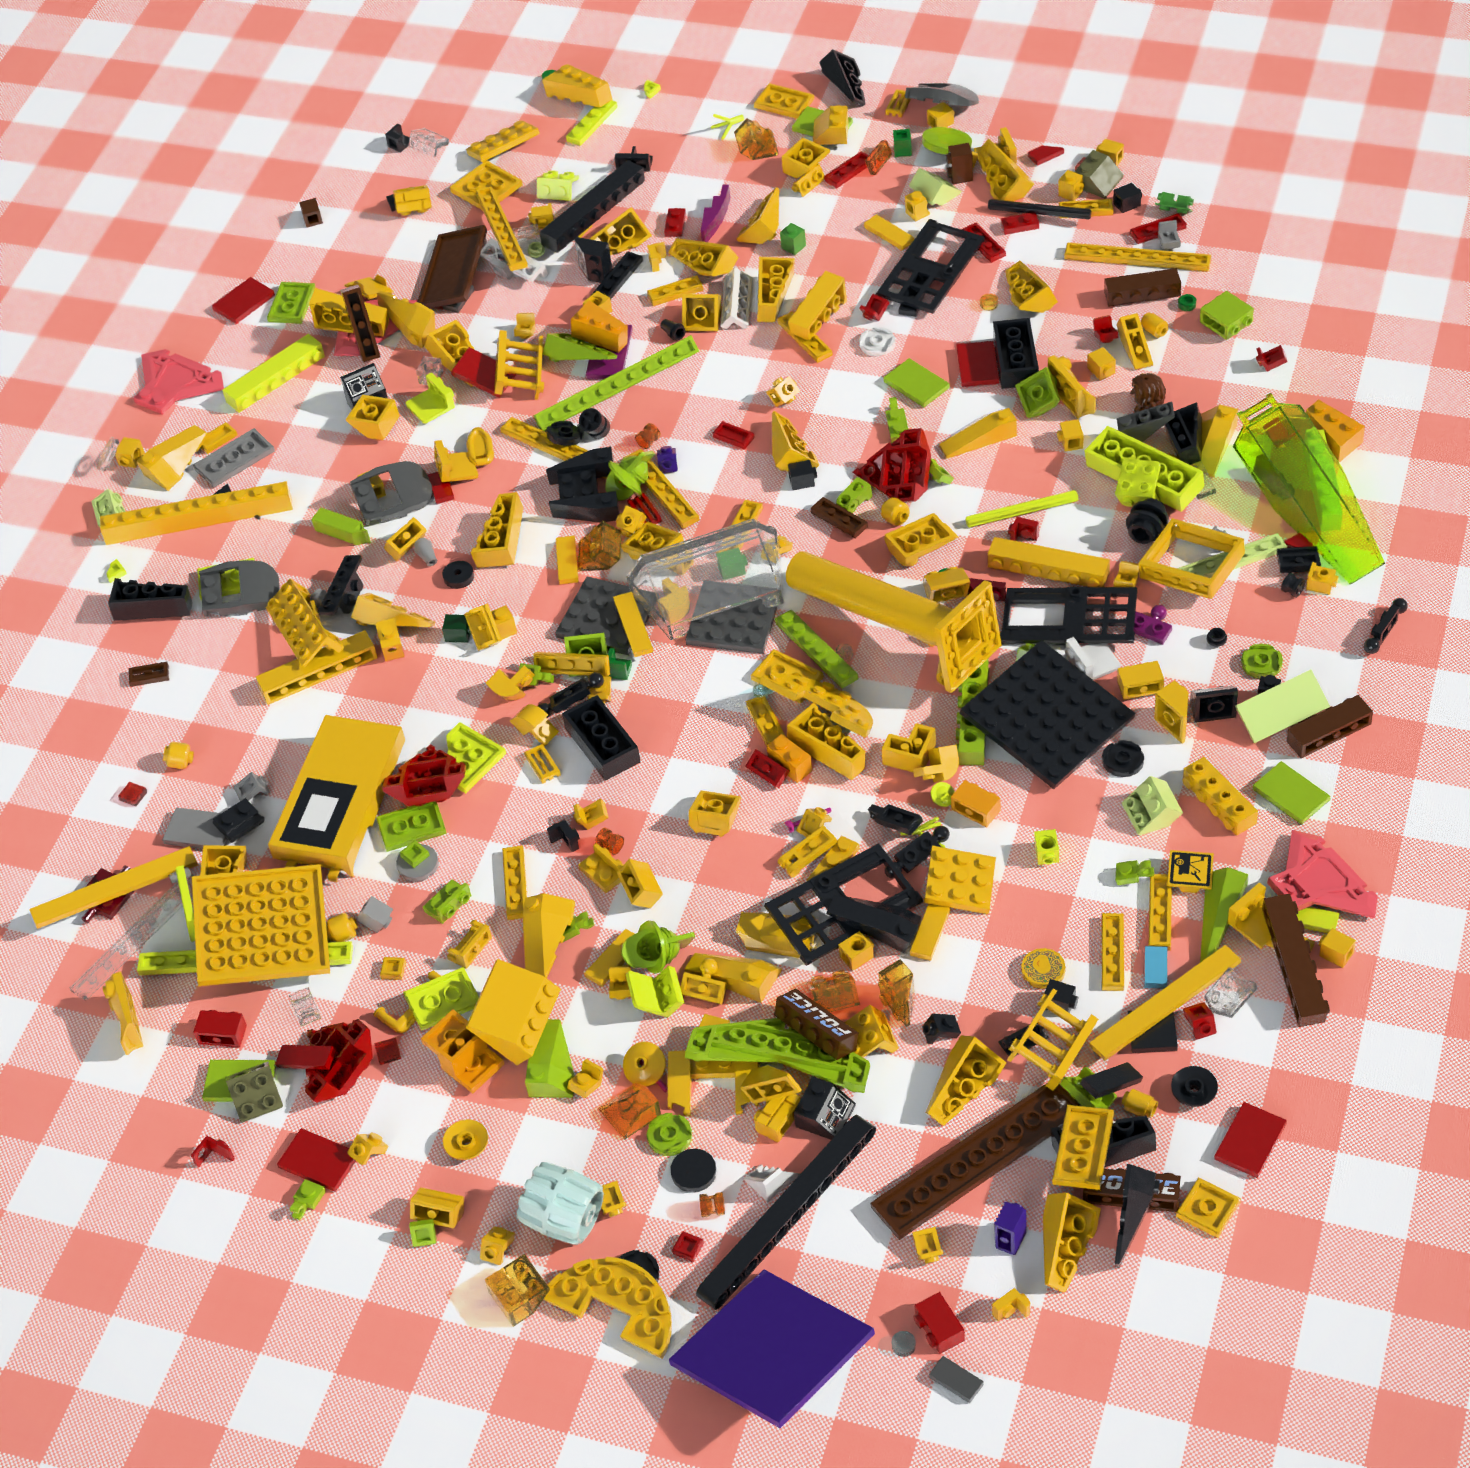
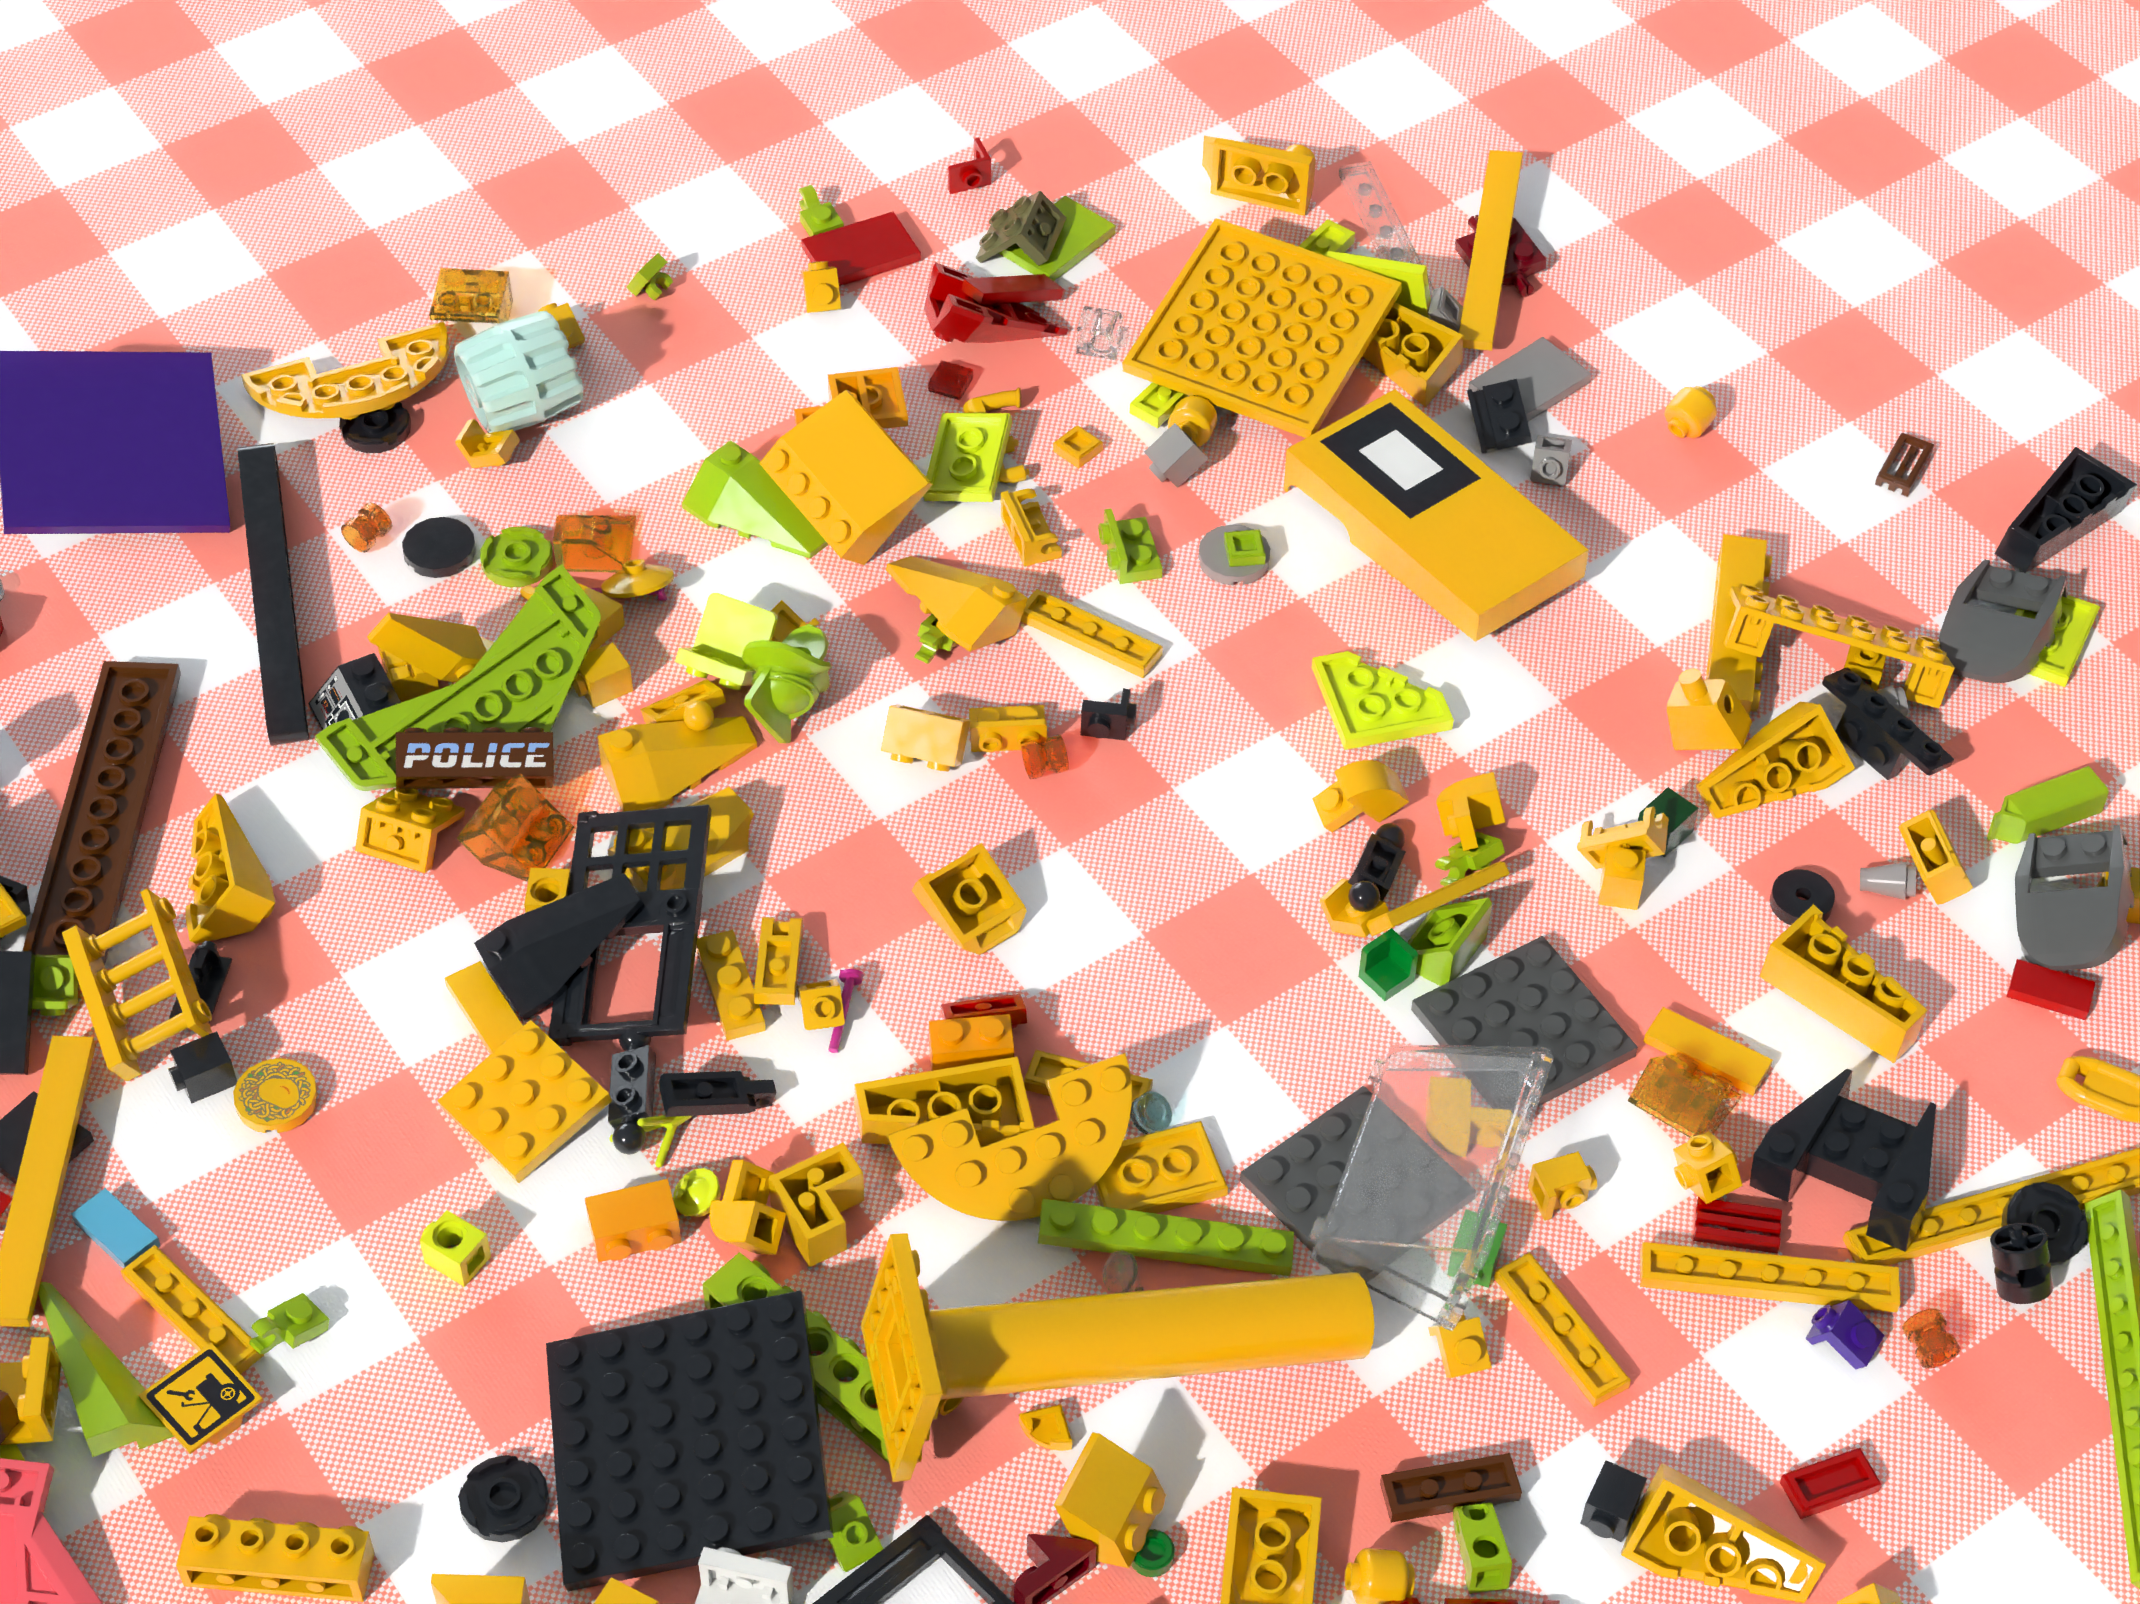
camera: 120 degrees right, 0 degrees up
(132, 794) = (1667, 352): clear red tile -> none
(220, 1028) = (1151, 249): red brick -> none
(411, 824) = (1312, 584): lime tile -> none
(426, 778) = (1376, 617): red wedge -> none
(440, 1206) = (662, 297): yellow brick -> none
(453, 465) = (2083, 1014): yellow bracket -> none
(463, 1132) = (728, 369): yellow dish -> none
(548, 774) = (1281, 782): yellow tile -> none
(587, 1079) = (681, 517): yellow bracket -> none
(591, 814) = (1119, 763): yellow bracket -> none
(599, 970) = (847, 658): yellow tile -> none
(601, 737) = (1247, 849): black brick -> none
(631, 472) = (1819, 1210): lime helmet -> none
(633, 624) = (1445, 1020): yellow tile -> none
(650, 538) = (1605, 1146): yellow slope -> none
(688, 1246) = (348, 485): red tile -> none
(769, 1181) = (334, 599): white slope -> none
(897, 990) = (416, 881): clear yellow slope -> none
(927, 1245) = (55, 682): yellow bracket -> none
(940, 1026) = (323, 909): black bracket -> none
(1112, 951) = (203, 1200): yellow tile -> none
(1152, 806) = (363, 1446): yellowish green slope -> none

